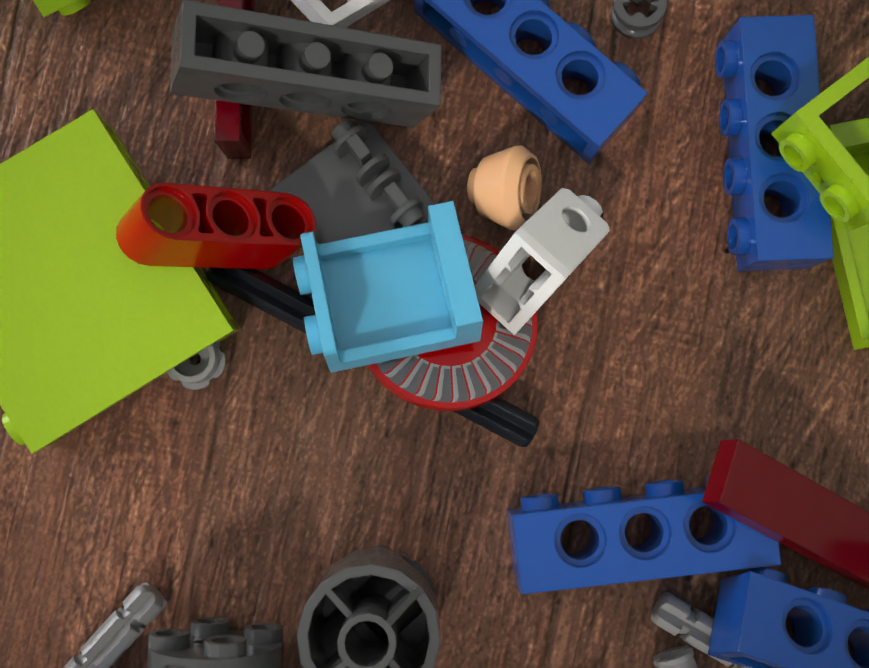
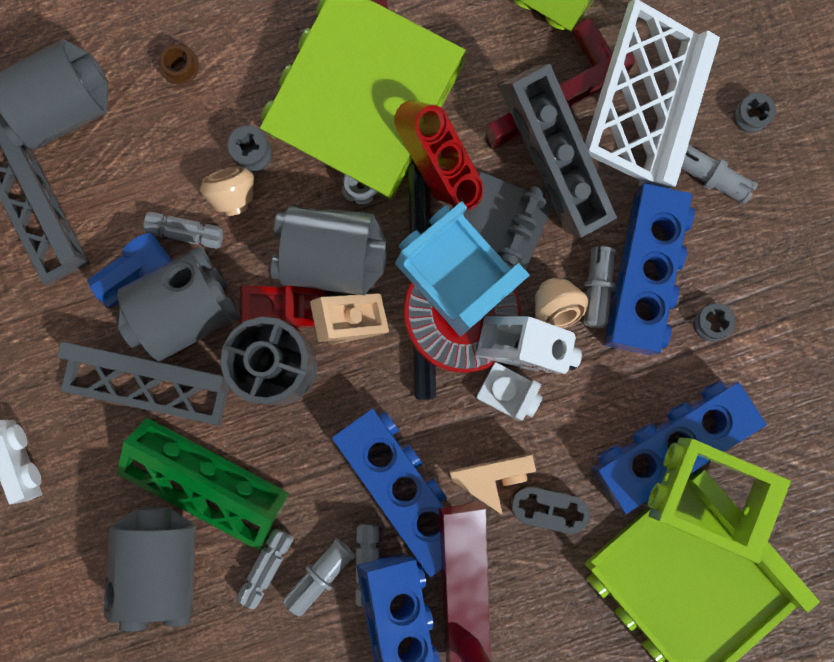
camera: 65 degrees right, 0 degrees up
(69, 482) = (254, 157): none -> dark grey wheel
(93, 544) = (229, 189): none -> light nougat cone
(259, 454) = (328, 250): none -> dark grey cylinder
(299, 558) = (286, 303): none -> red slope
(367, 477) = (348, 317): none -> light nougat slope
(513, 123) = (599, 286): none -> light grey axle
(588, 317) = (510, 393): none -> white bracket
(678, 418) = (481, 478): none -> light nougat slope
(775, 363) = (548, 519): none -> dark grey beam

